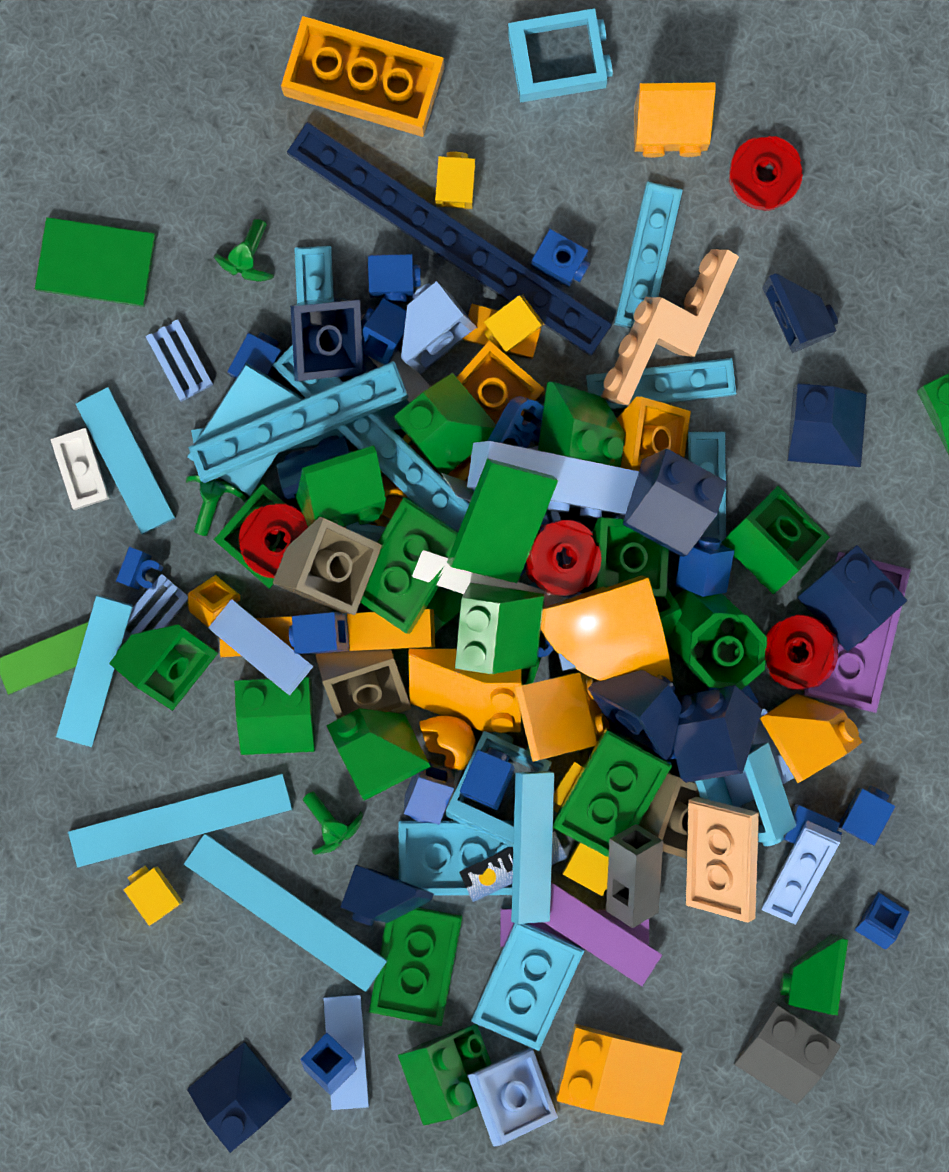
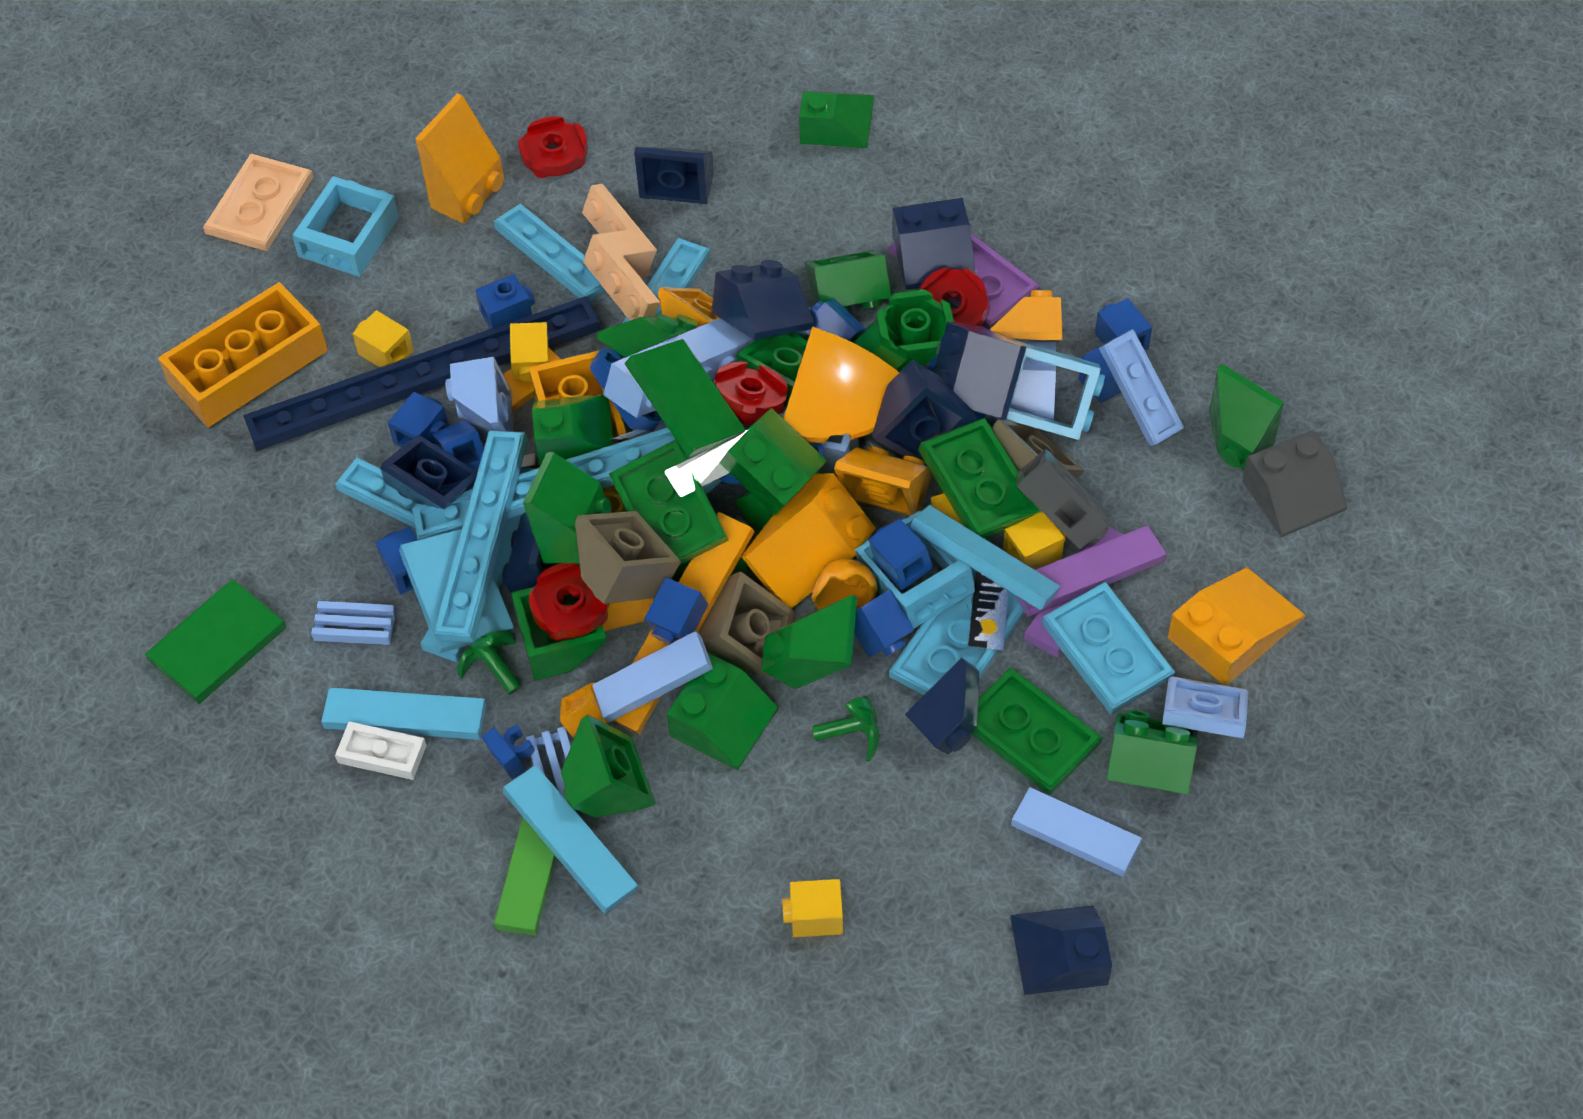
camera: 60 degrees left, 30 degrees down
(180, 820) = (760, 854): medium azure tile -> none
(241, 256) = (311, 514): green plant -> none
(285, 912) = (908, 806): medium azure tile -> none
(328, 1064) = (1078, 830): blue brick -> none
(722, 859) = (1091, 432): light nougat tile -> none
(826, 425) = (777, 206): dark blue slope -> none
(882, 921) = (1208, 364): blue slope -> none

